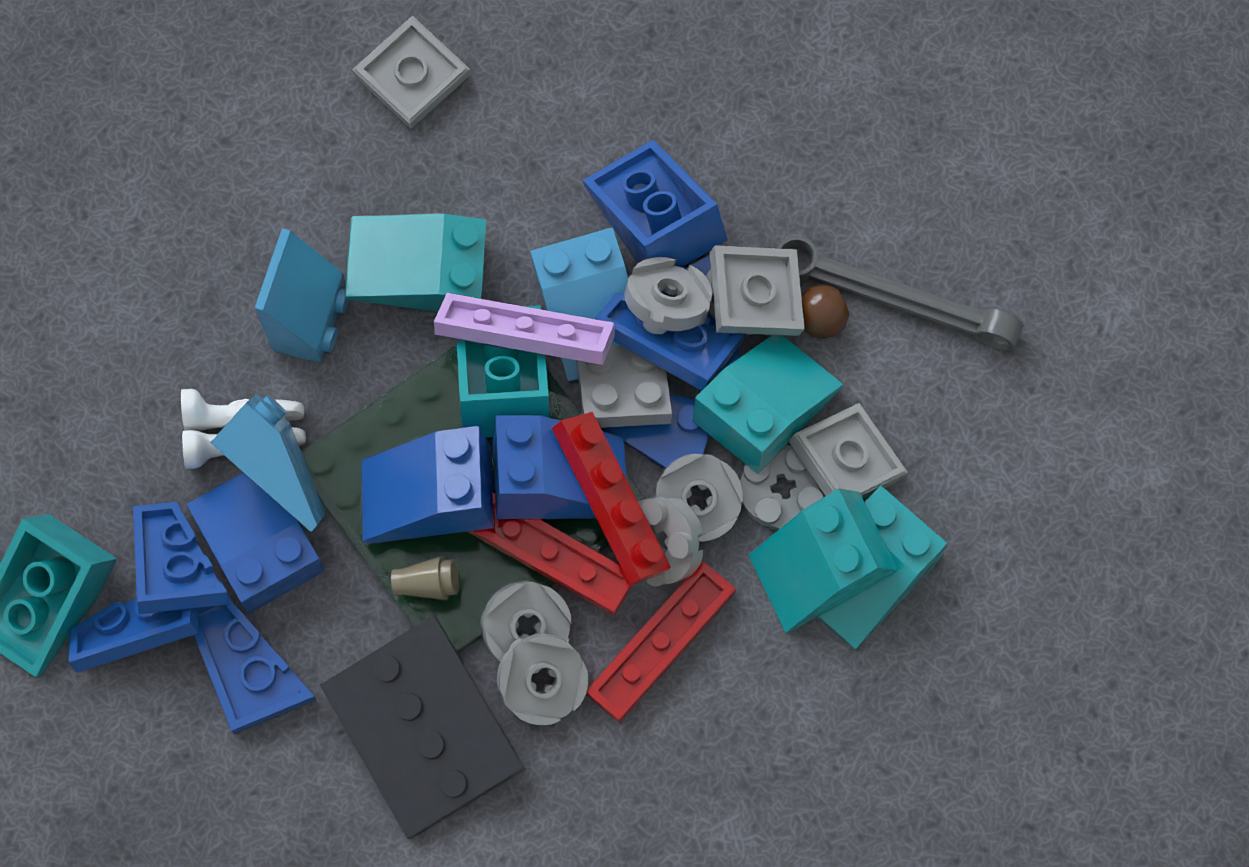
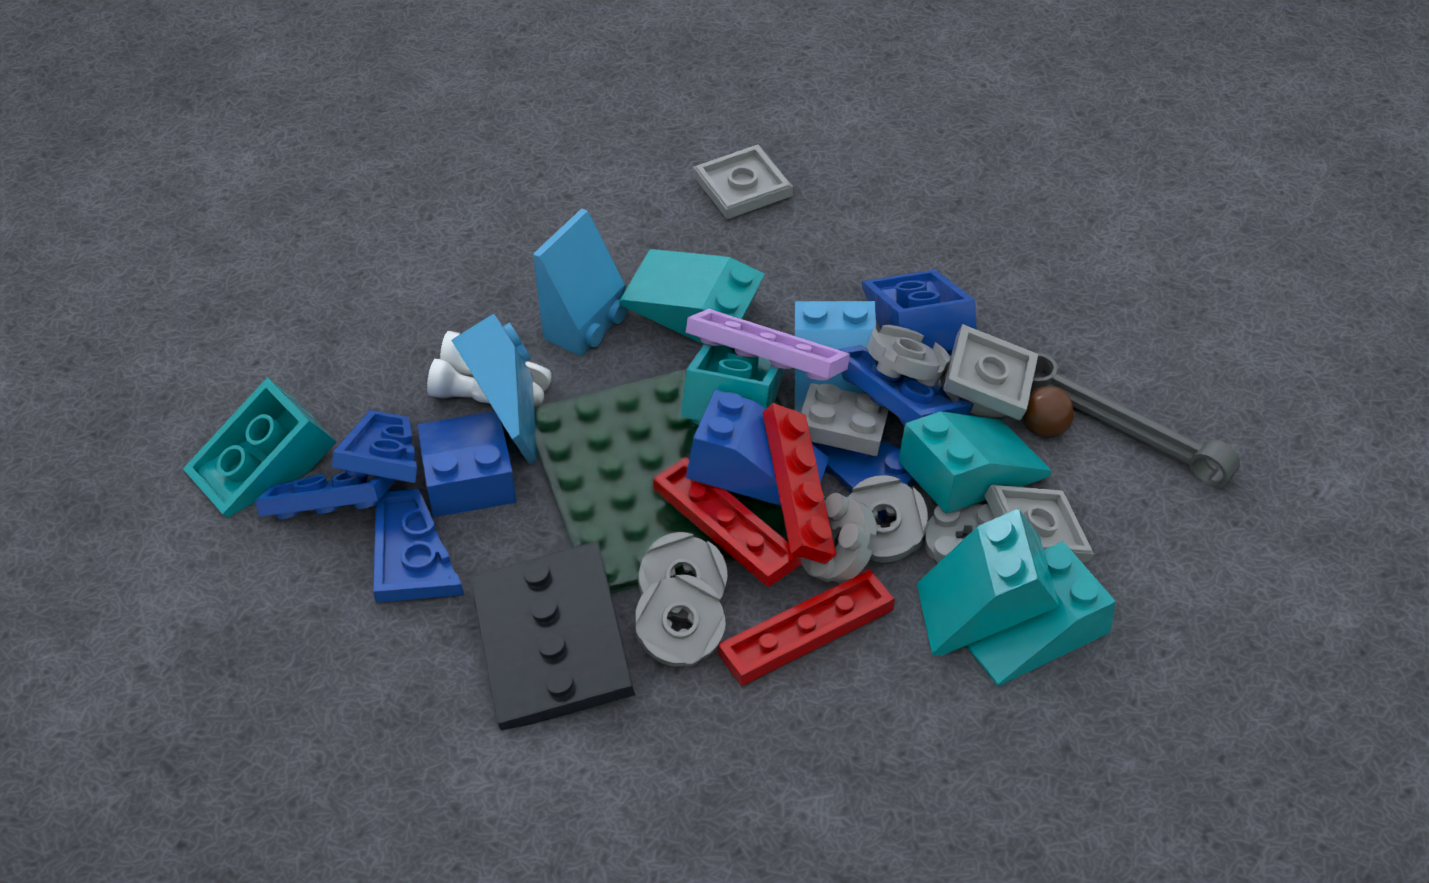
camera: 15 degrees right, 25 degrees down
(428, 487) = (636, 439): blue slope -> none
(428, 579) = (606, 513): dark tan cone -> none

